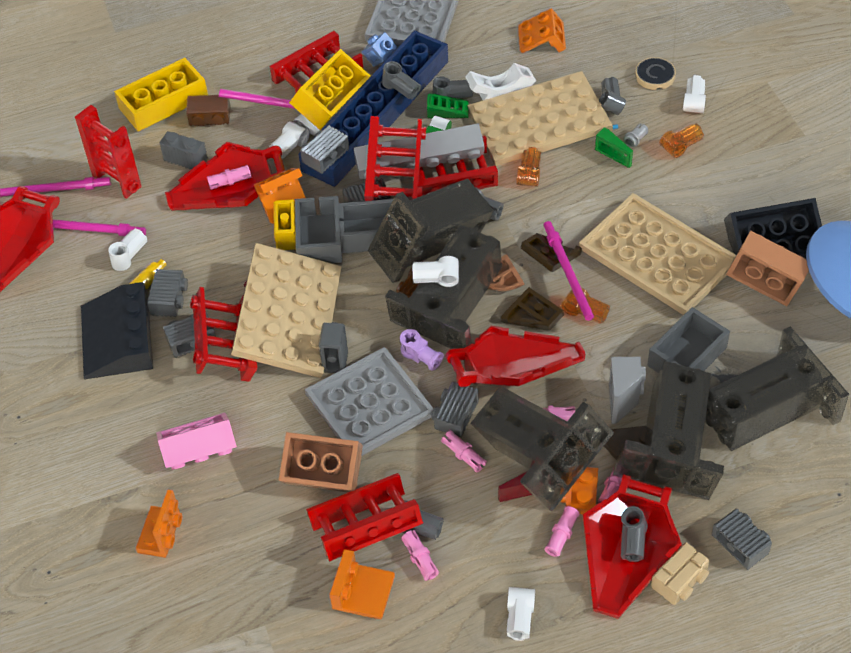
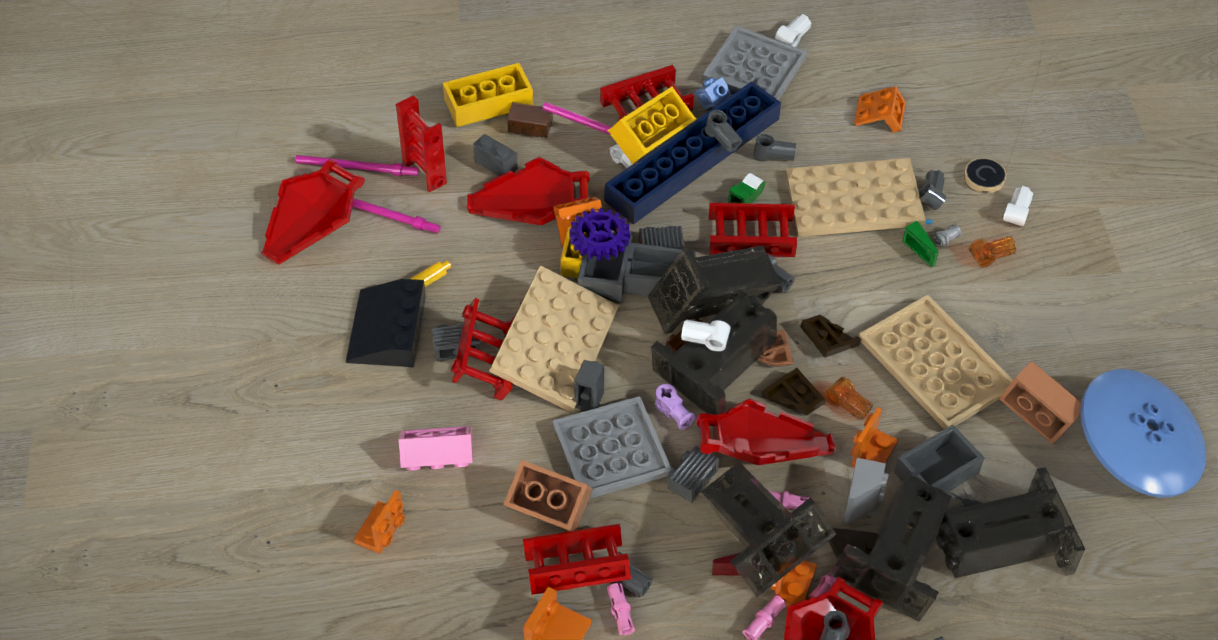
camera: 10 degrees right, 0 degrees up
(123, 251) = (413, 244): white piece -> none
(166, 292) = (444, 295): dark grey brick -> none
(229, 177) = (532, 192): bright pink pin -> none
(291, 137) = (604, 164): white piece -> none
(308, 205) = (600, 237): none -> dark purple gear
(324, 149) = (630, 185): brick -> none
(376, 150) = (679, 198): red fence -> none
(438, 148) = (723, 207): light grey brick -> none
(440, 106) = (754, 161): green slope -> none
(464, 451) = (690, 517): bright pink pin -> none
(513, 79) = (837, 152): white arch -> none
(529, 171) = (829, 250): clear orange piece -> none
(555, 241) = (835, 327): dark pink bar -> none
(619, 341) = (873, 443): none -> orange bracket
(784, 224) = (1067, 361): black slope -> none

